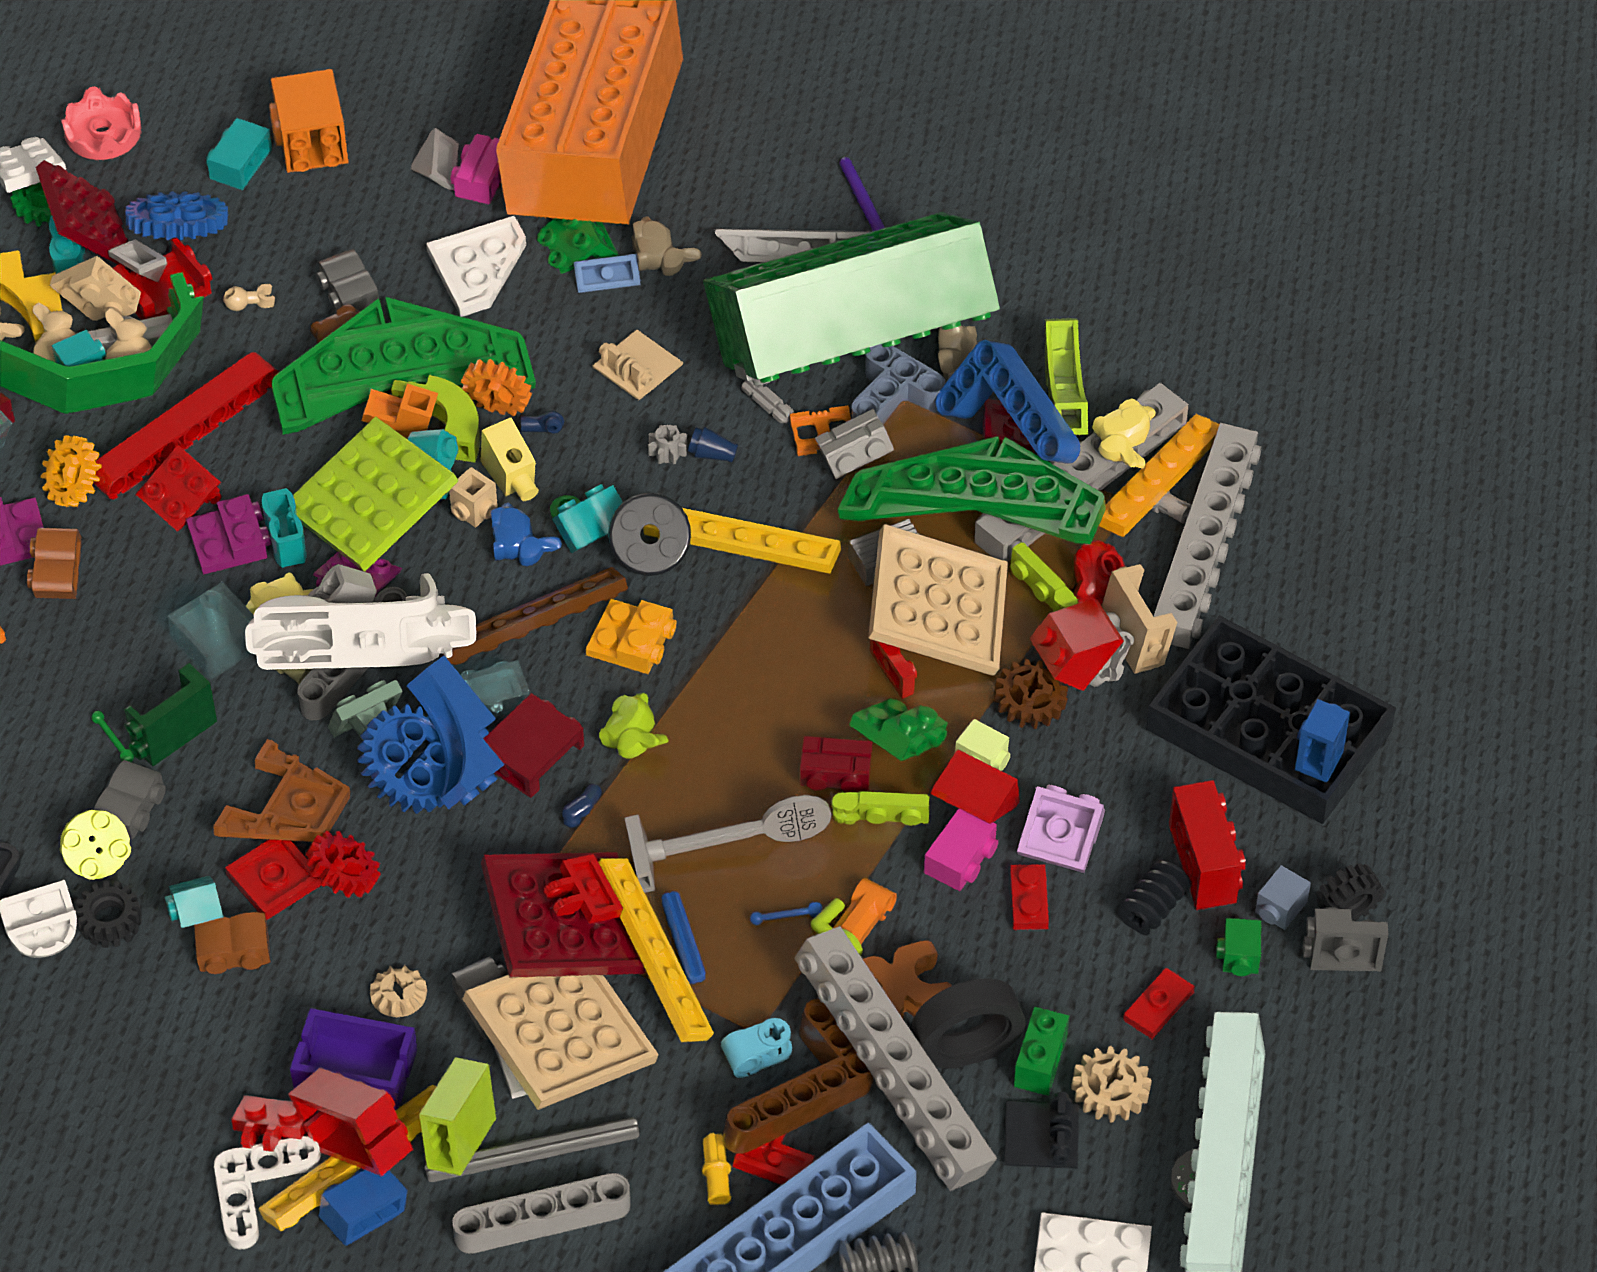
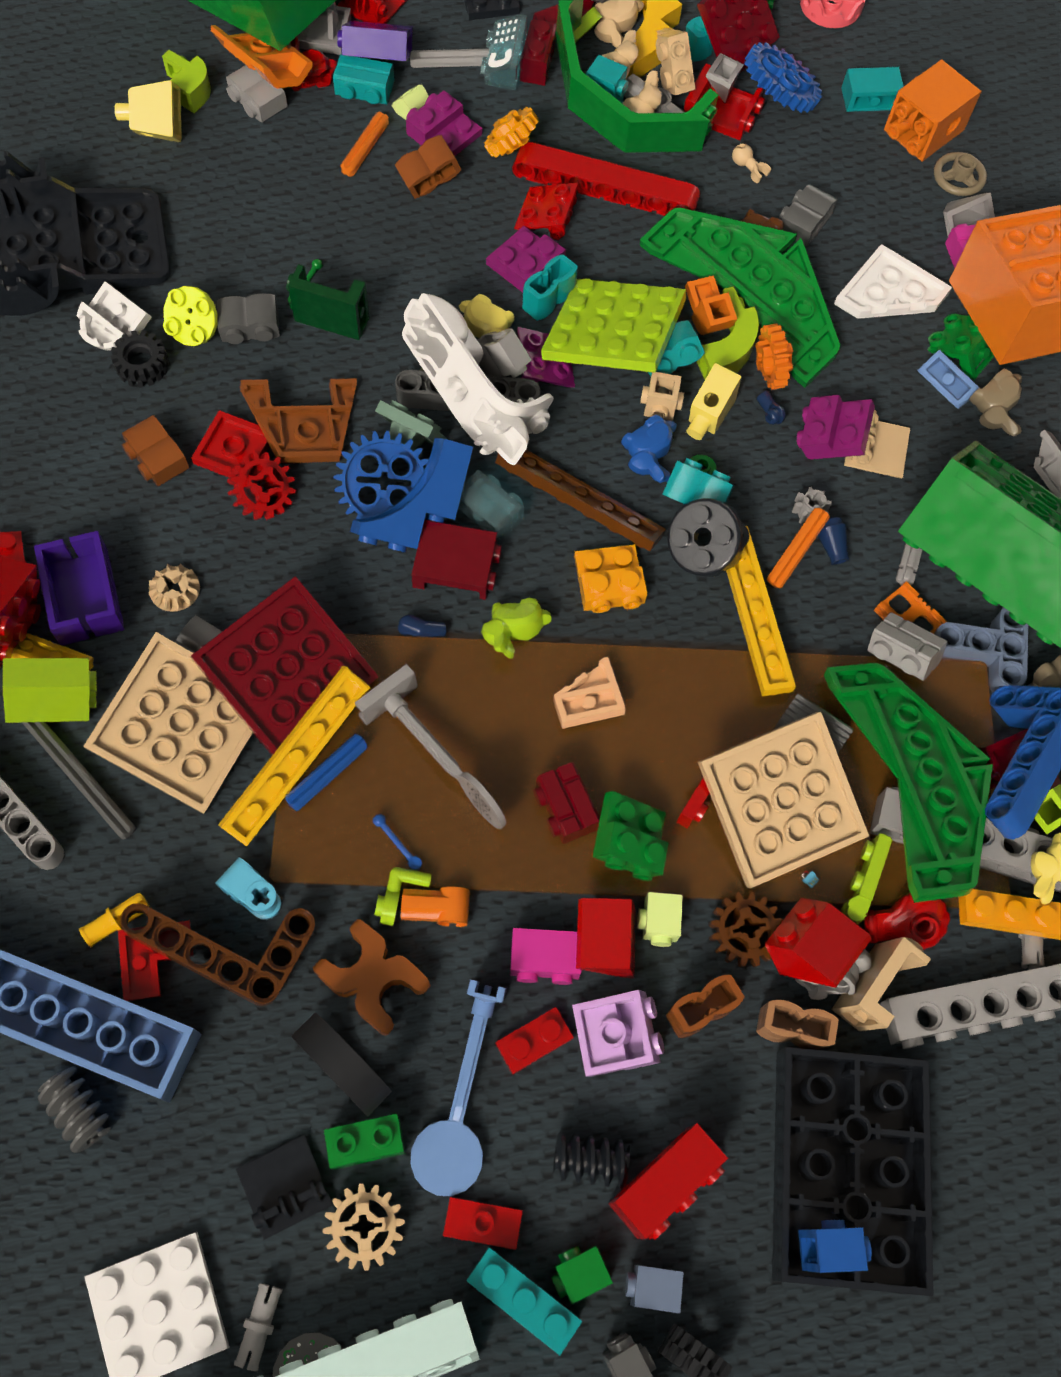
camera: 55 degrees right, 15 degrees up
(194, 902) = (165, 404): brick -> none
(212, 630) = (432, 278): clear light blue brick -> none
(387, 134) = (961, 171): none -> dark tan piece
(589, 889) = (313, 673): red hinge -> none
(601, 382) = (835, 427): none -> magenta plate
(703, 473) = (798, 548): none -> orange axle
(746, 700) = (590, 697): none -> light nougat wing
(880, 807) = (541, 863): lime hinge -> none
(895, 1058) = (216, 1137): light grey brick -> none
(1016, 627) = (810, 879): none -> medium azure piece
(1078, 752) = (699, 1008): none -> dark orange brick
(1088, 997) = (448, 1153): none -> medium blue piece
(1131, 696) = (804, 1028): none -> medium nougat brick
(1146, 1198) = (258, 1327): none -> light grey pin
(1240, 990) = (524, 1301): none -> teal brick

